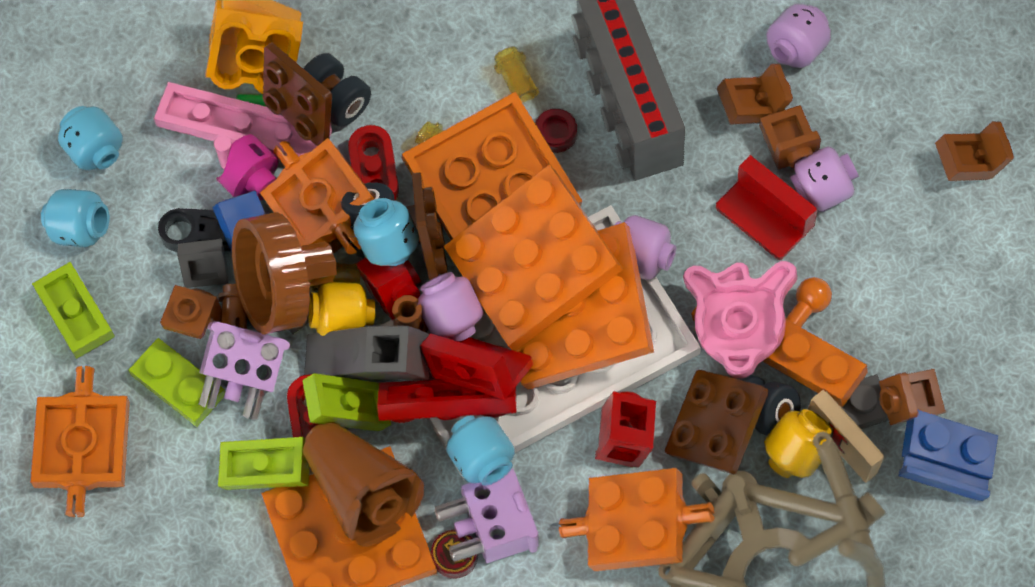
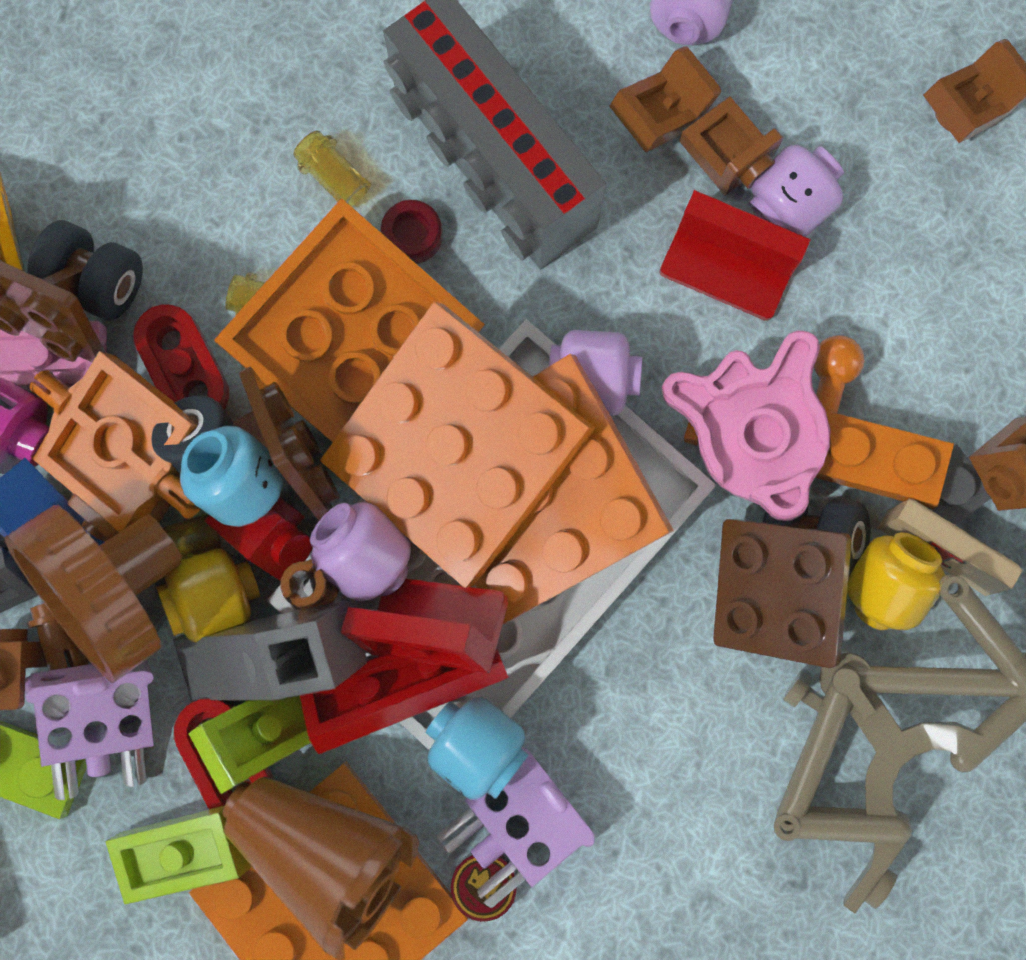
camera: 25 degrees left, 15 degrees up
(626, 429) = (678, 635): red brick -> none
(636, 520) = (720, 769): orange plate -> none

